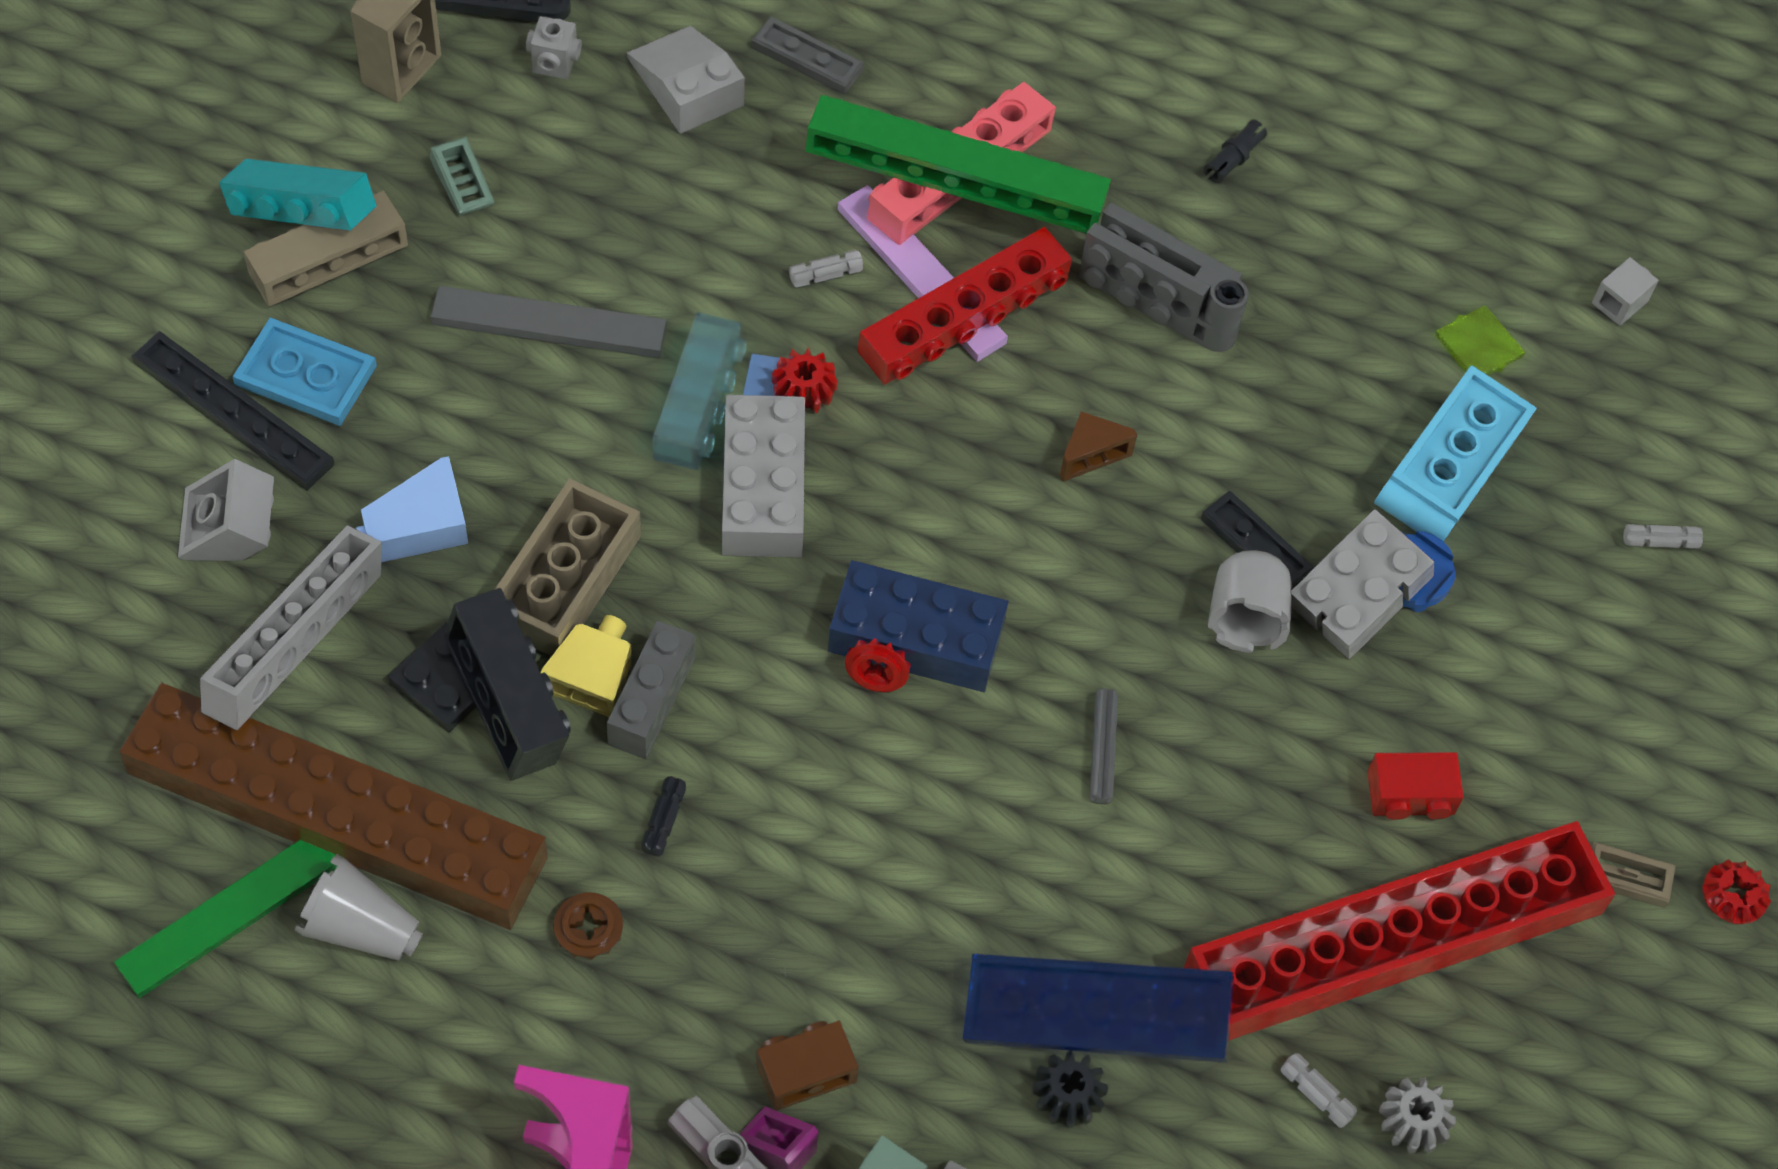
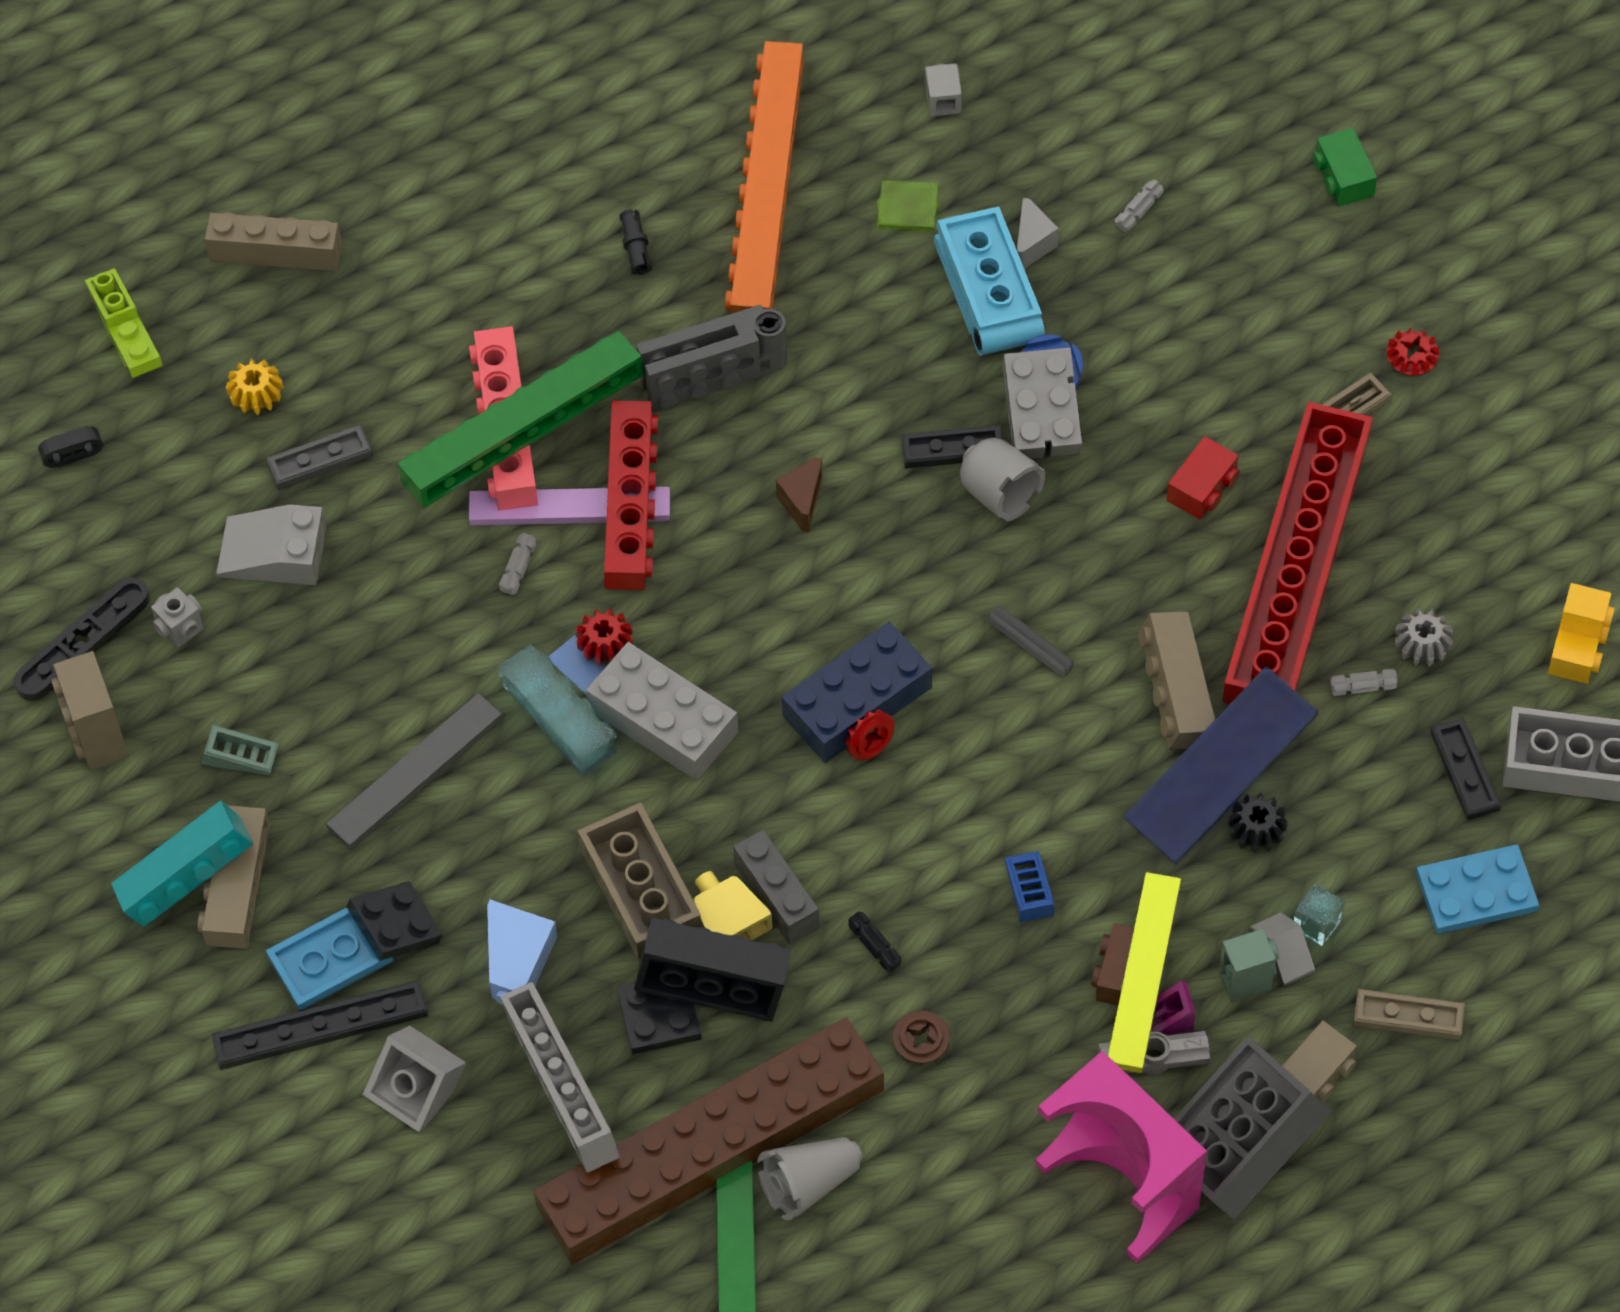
camera: 45 degrees left, 0 degrees up
(376, 398) = (394, 920): none -> black plate
(800, 1084) = (1144, 971): none -> neon yellow tile
(822, 947) = (1032, 909): none -> blue slope
(1169, 903) = (1176, 677): none -> dark tan brick
(1393, 212) = (767, 177): none -> orange brick
(1541, 465) = (1036, 234): none -> light grey slope

